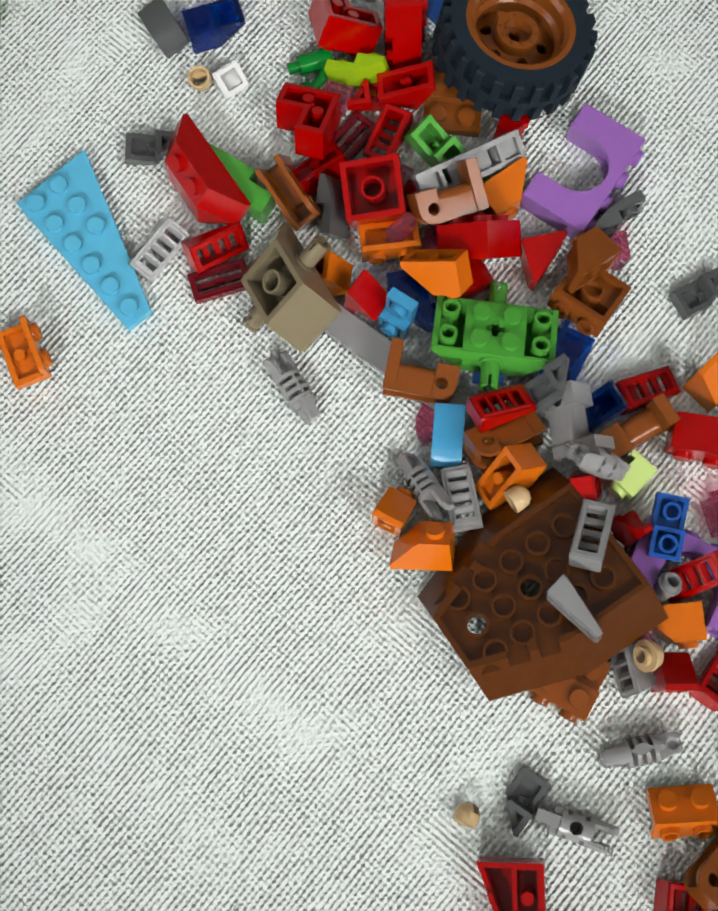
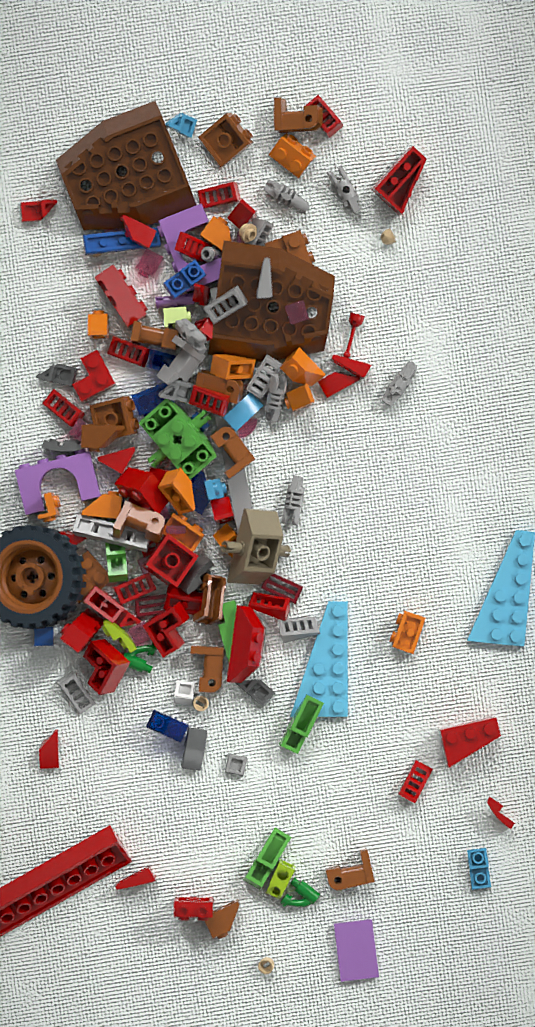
camera: 145 degrees left, 10 degrees up
(61, 145) = (301, 724): none -> bright green slope
(103, 53) = (236, 764): none -> light grey tile
(219, 126) = (212, 667): none -> dark orange piece
(288, 638) = (399, 384): none -> light grey hinge
(360, 610) = (355, 367): none -> red slope
(367, 572) = (336, 382): none -> red slope
(412, 669) = (355, 321): none -> red hinge
(495, 606) = (296, 312): none -> clear pink tile
(517, 497) = (240, 352): tan hinge -> none
(524, 796) = (356, 222): dark grey slope -> none
(566, 134) = (52, 504): none -> orange bracket
(638, 267) = (51, 397): none -> red slope
(652, 326) = (98, 379): none -> red brick
(661, 483) = (168, 301): none -> medium lavender pin

